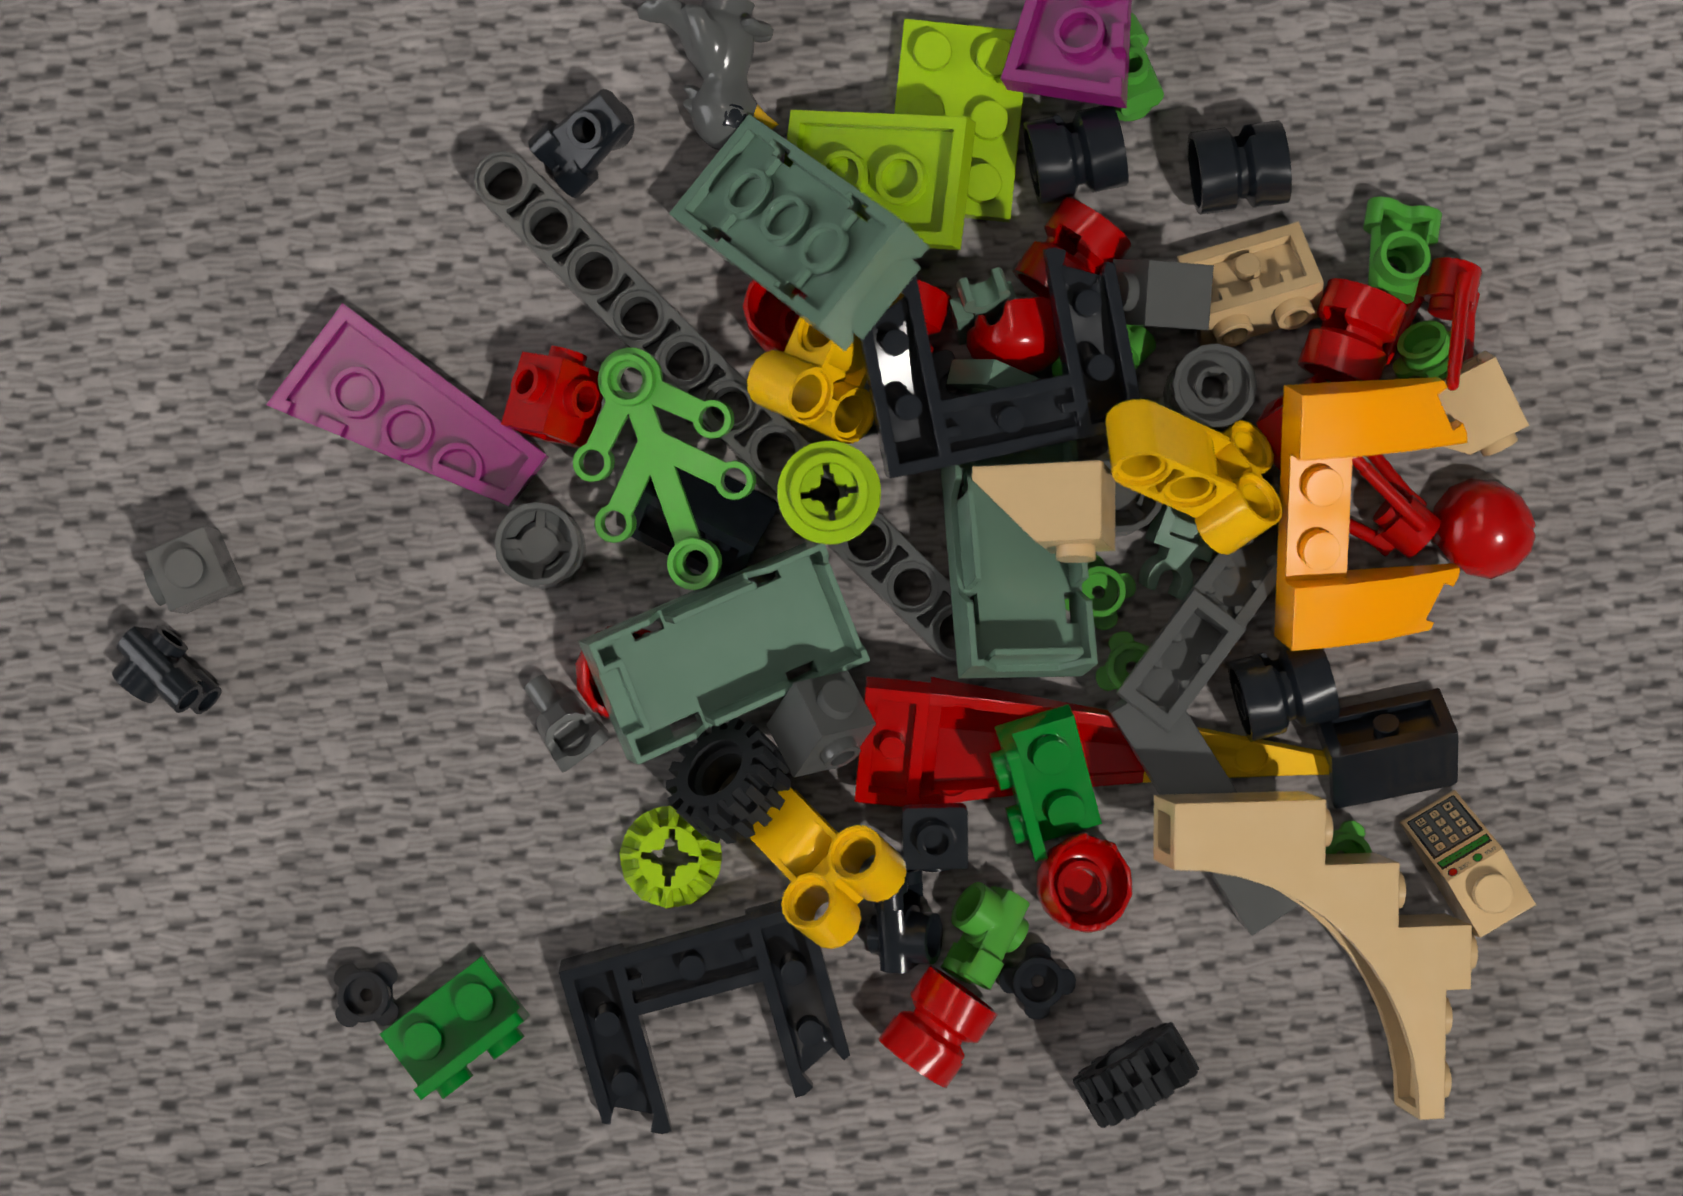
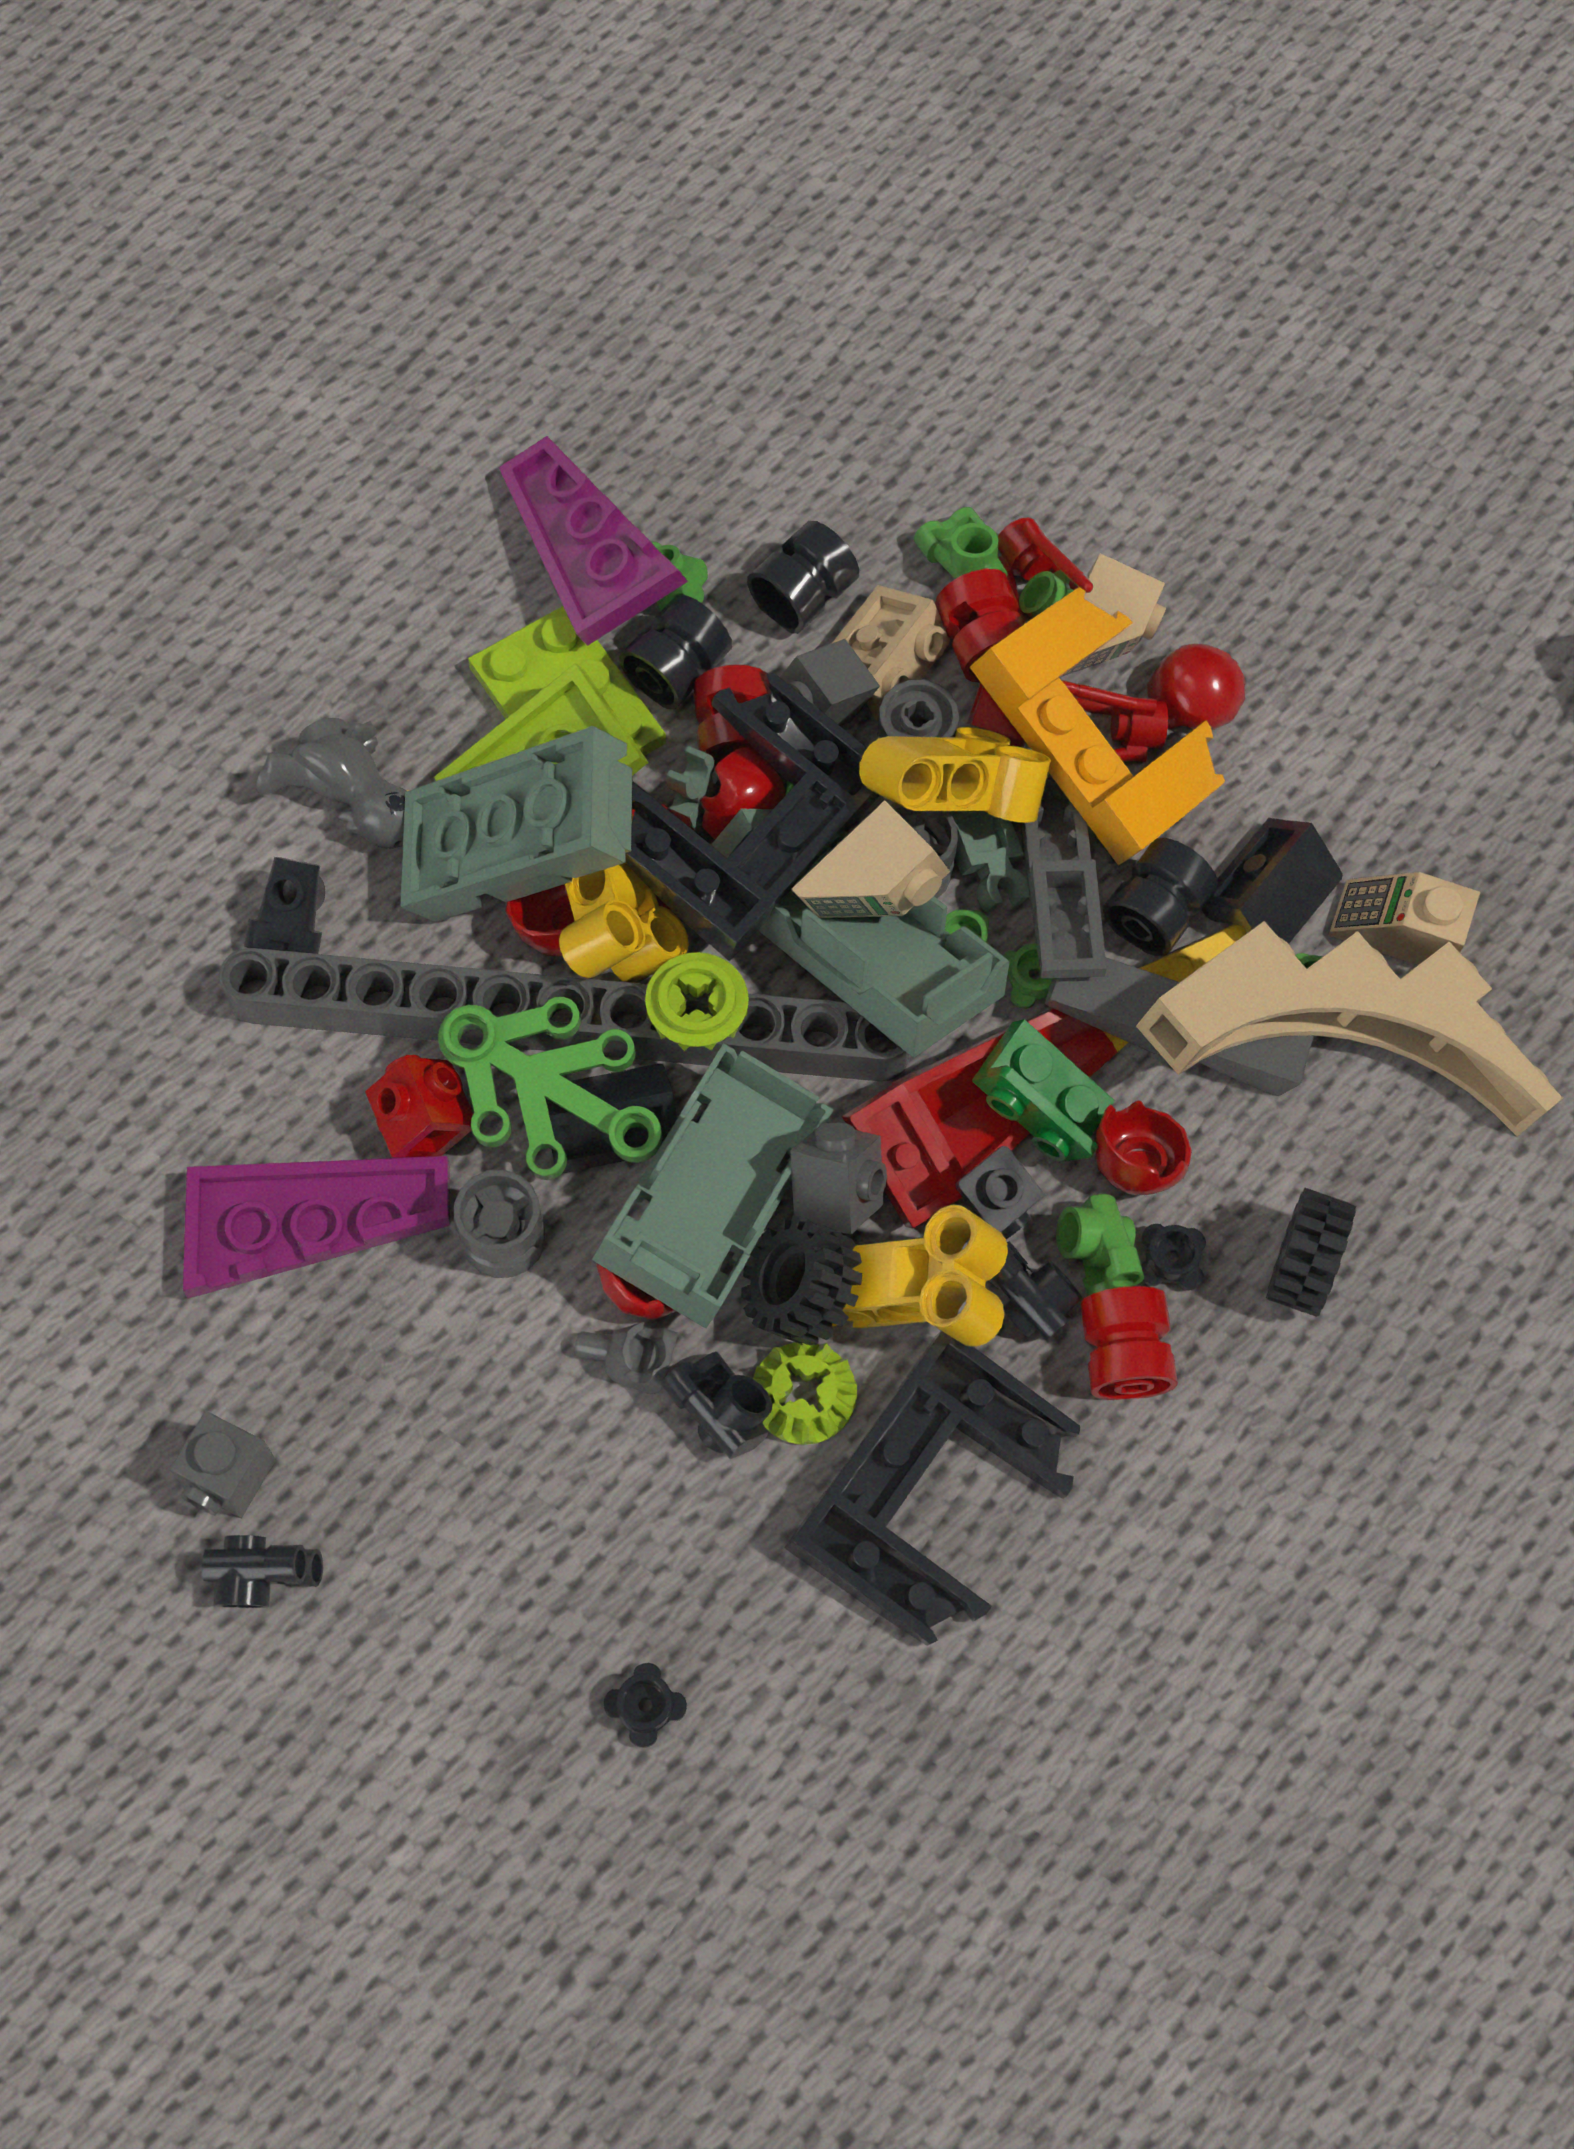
camera: 40 degrees left, 20 degrees down
(455, 1027) = (742, 1670): green bracket -> none
(595, 828) = (723, 1404): none -> black plate

